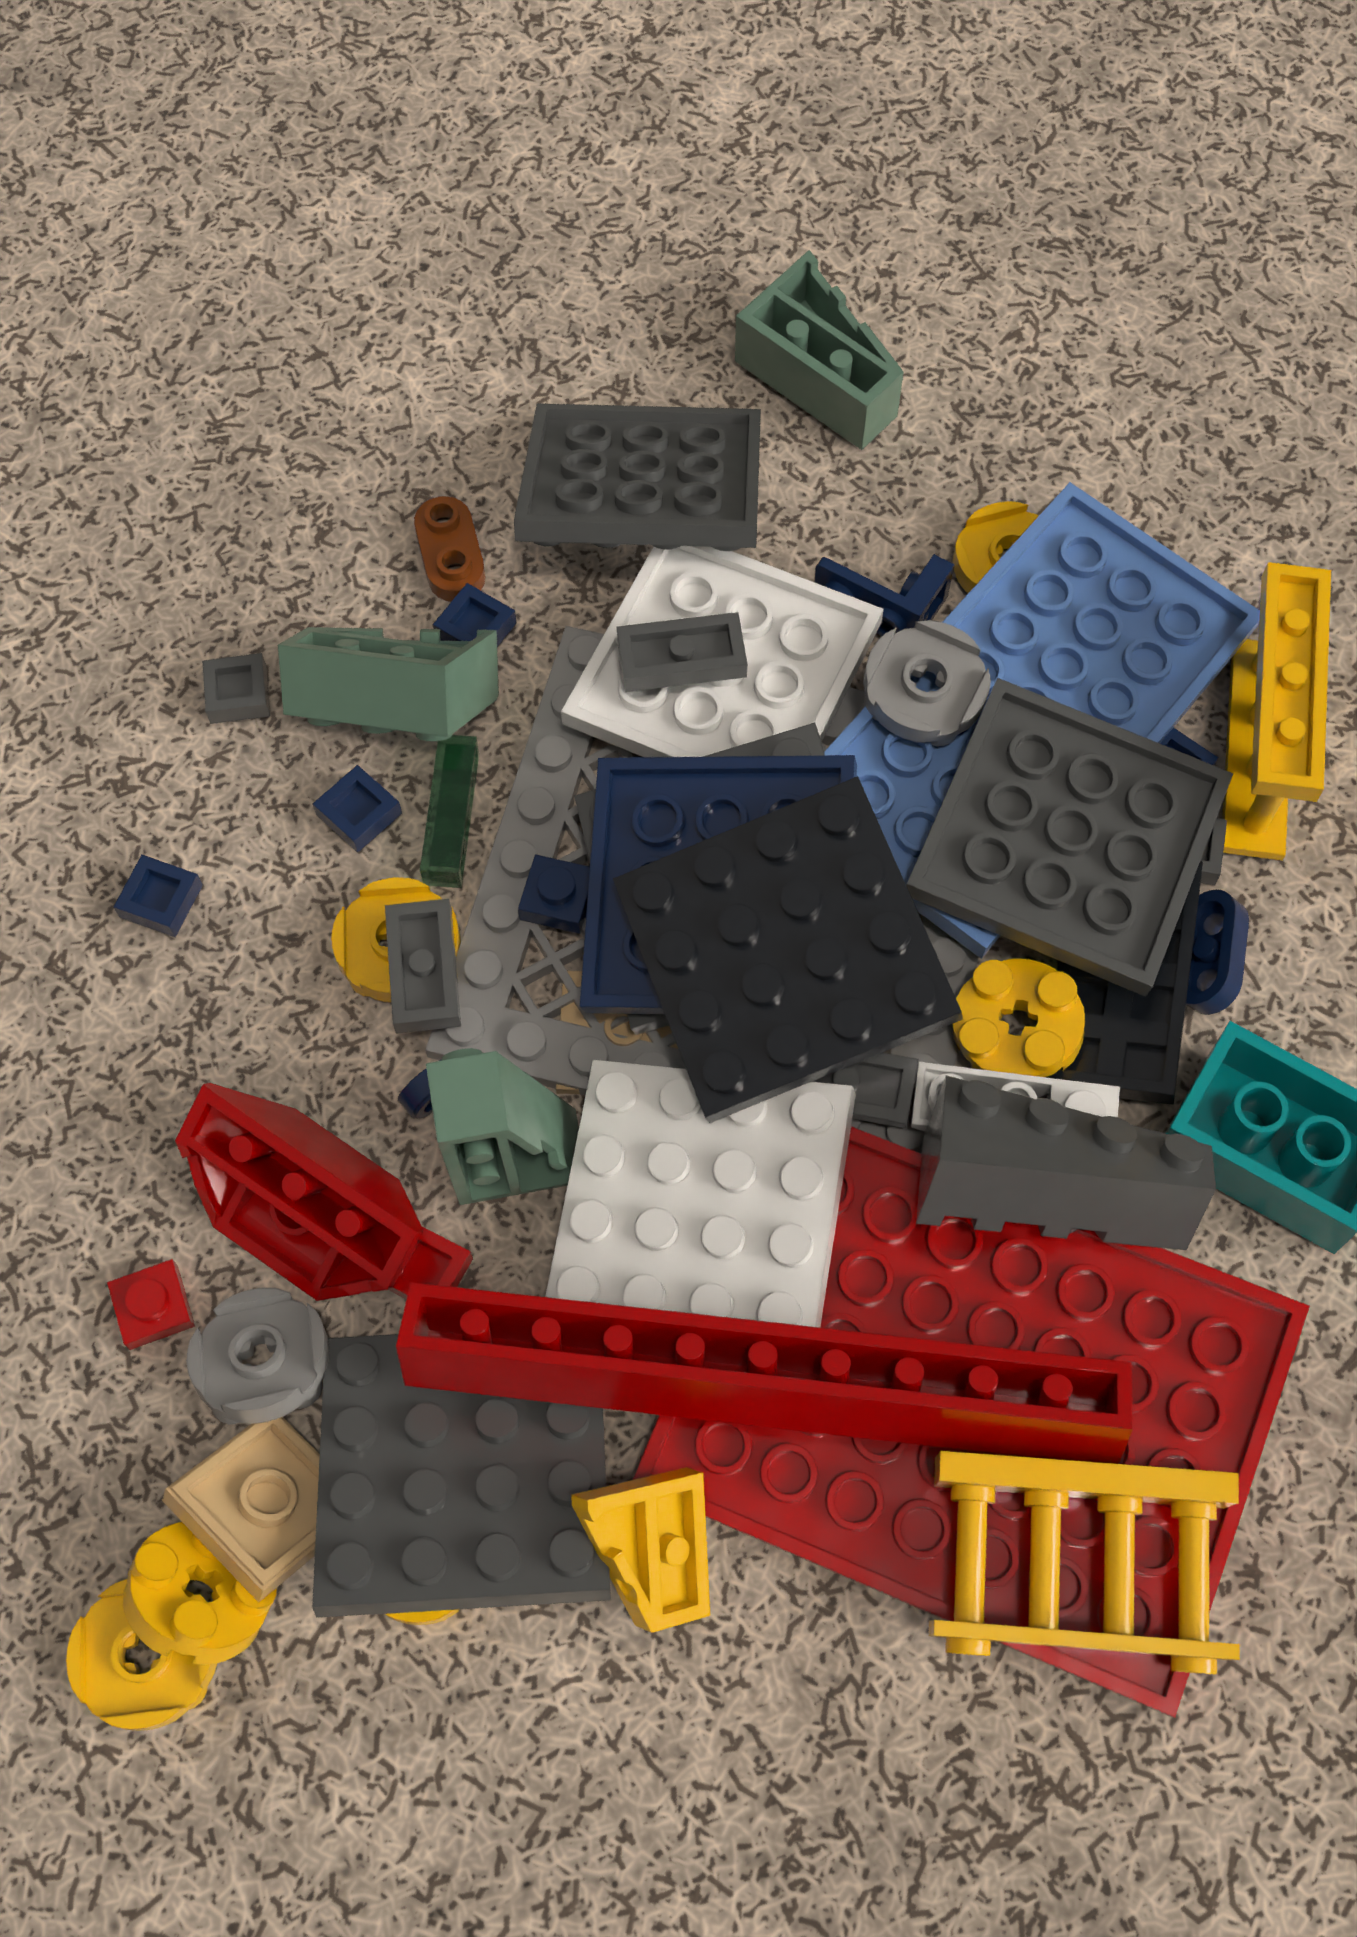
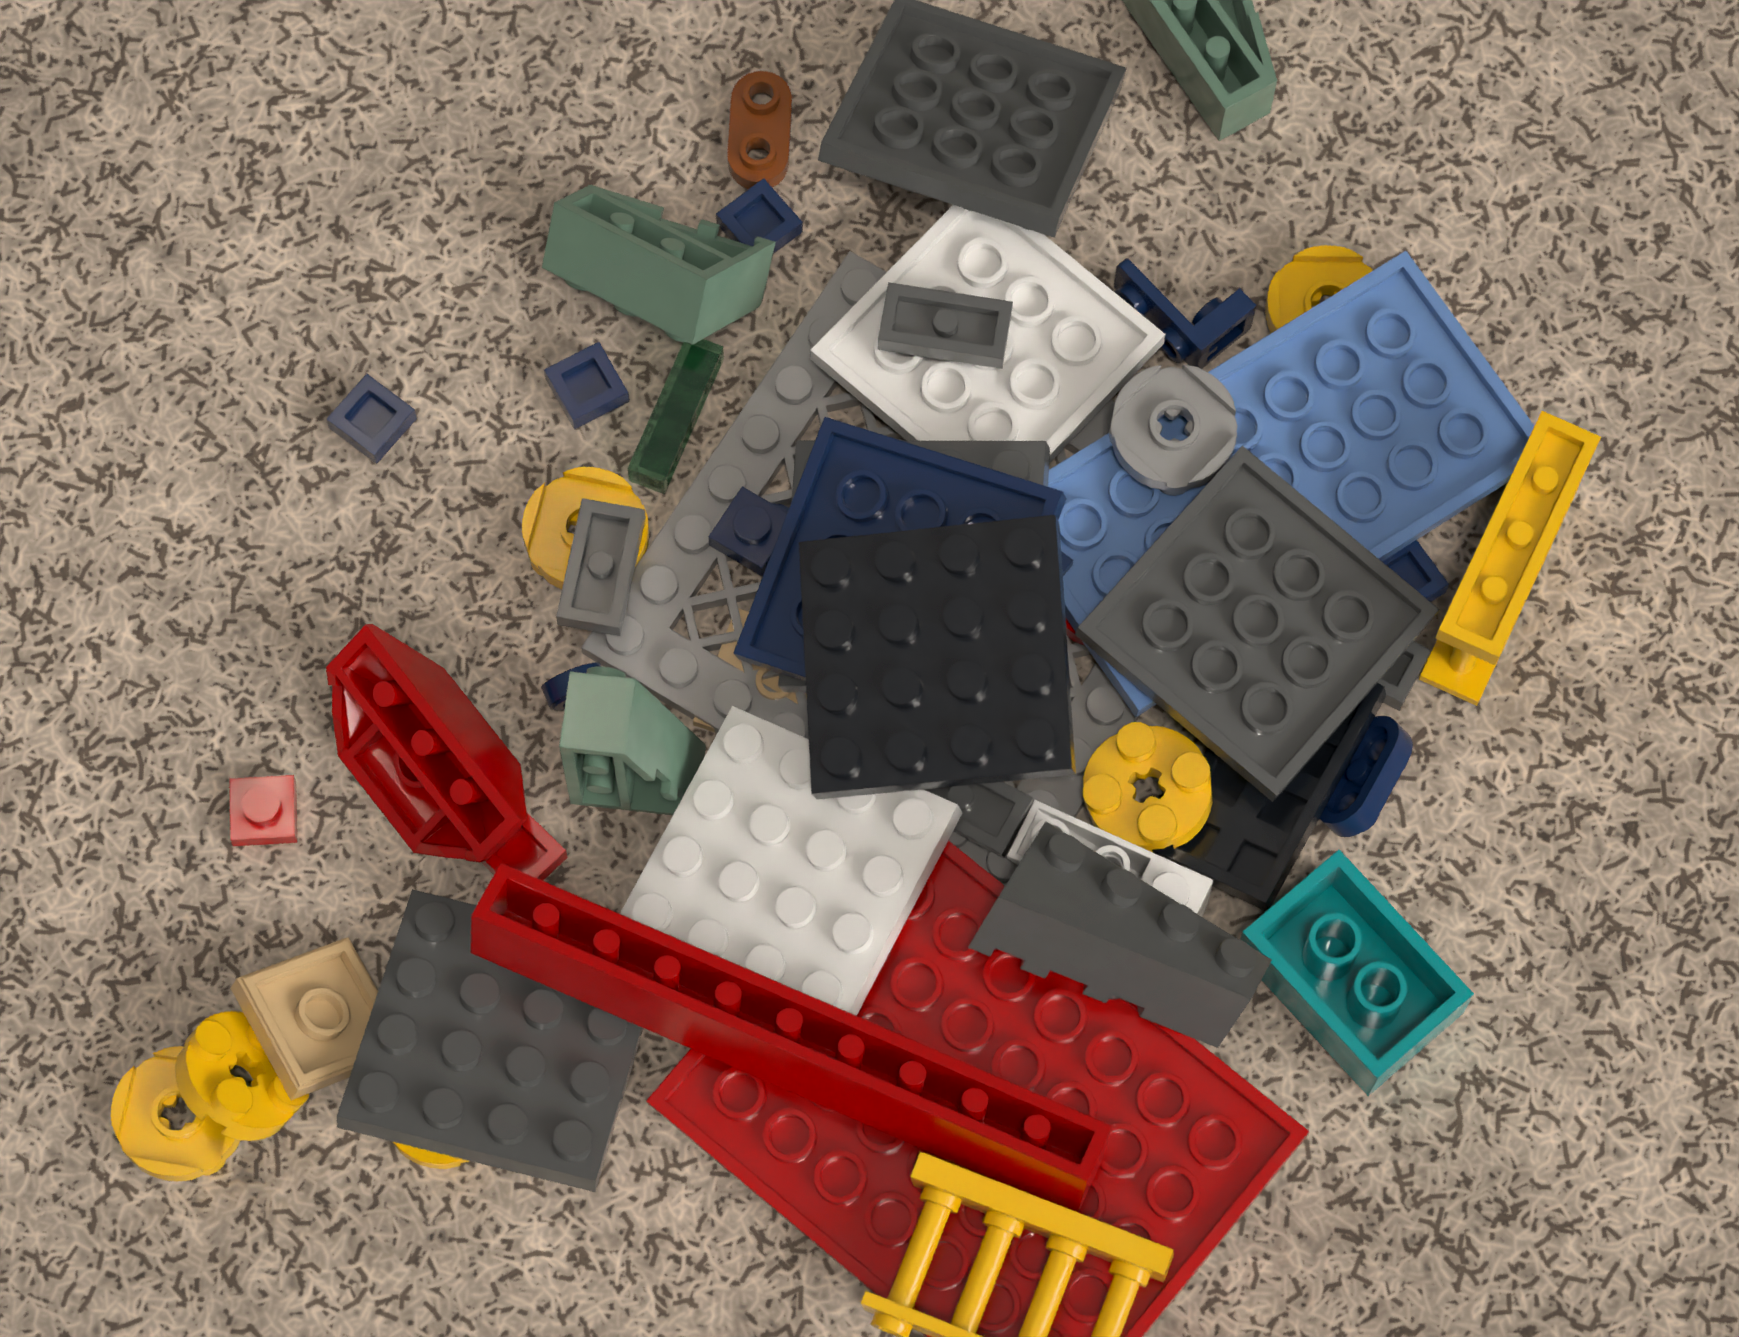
camera: 15 degrees right, 5 degrees up
(236, 688) = (503, 223): dark grey plate -> none
(262, 1391) = (353, 919): light grey plate -> none
(653, 1544) = (646, 1157): yellow wing -> none

